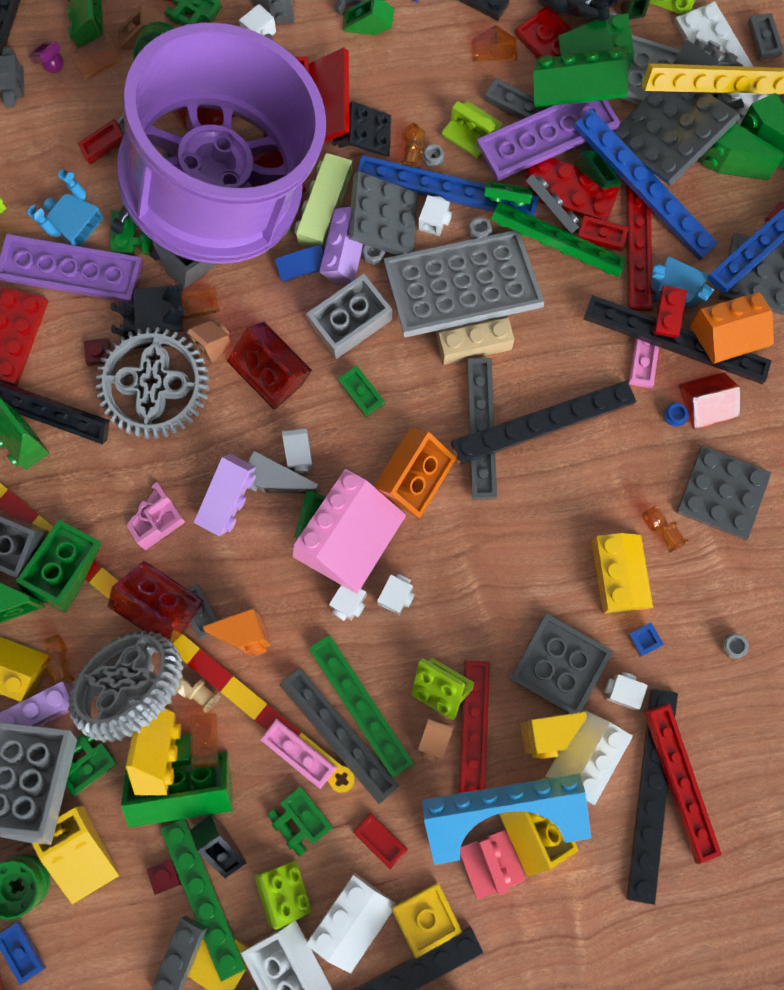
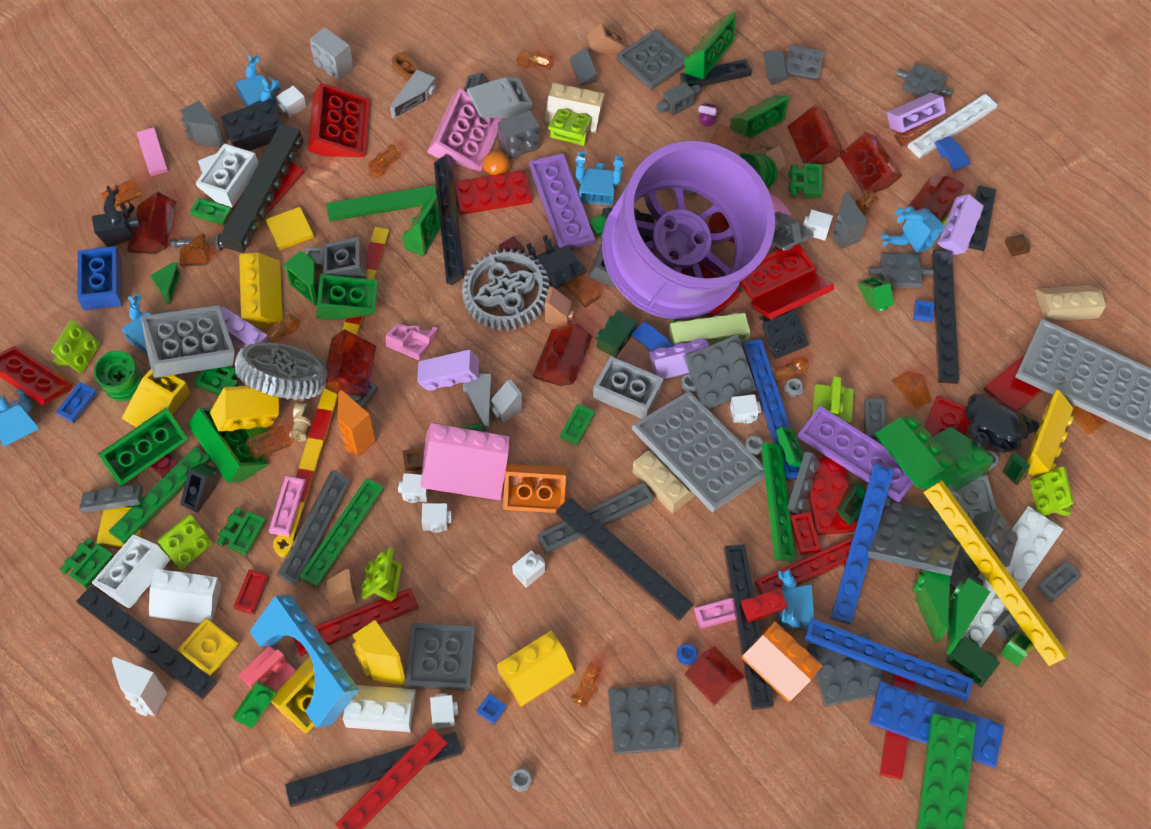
camera: 60 degrees right, 15 degrees down
(136, 896) = (142, 447): none -> green slope
(274, 296) = (616, 334): none -> dark green brick
(311, 585) = (413, 459): none -> reddish brown plate
(506, 524) = (529, 568): none -> white brick
(526, 896) = (254, 704): none -> green plate

